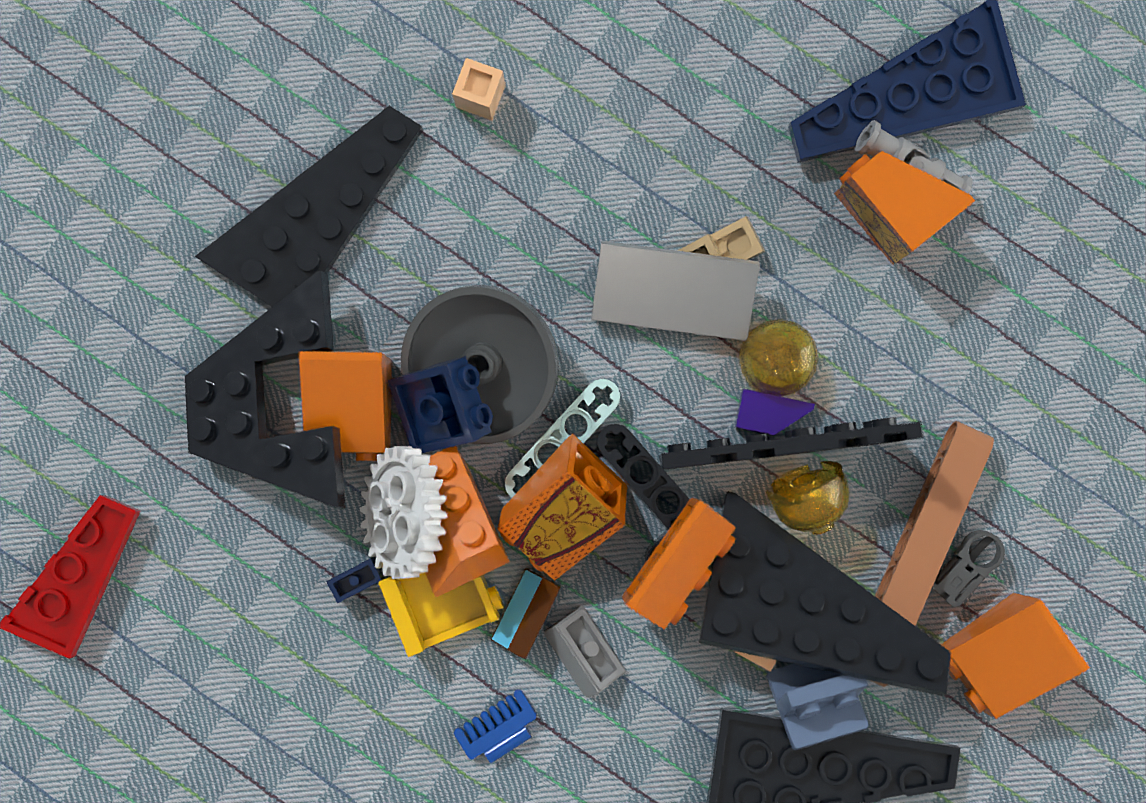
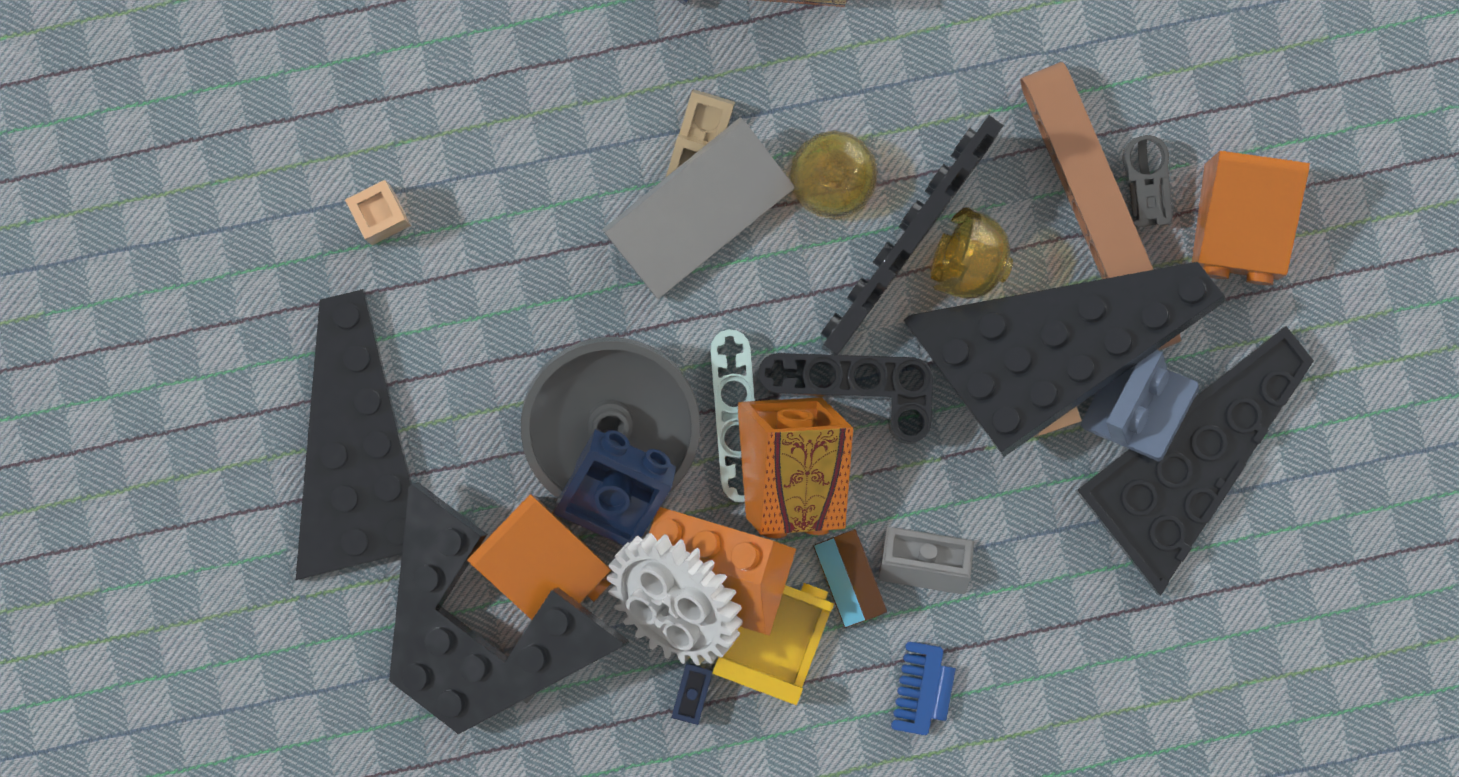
camera: 45 degrees left, 0 degrees up
(679, 564) = (925, 411): orange slope -> none
(768, 413) = (871, 225): dark purple tile -> none

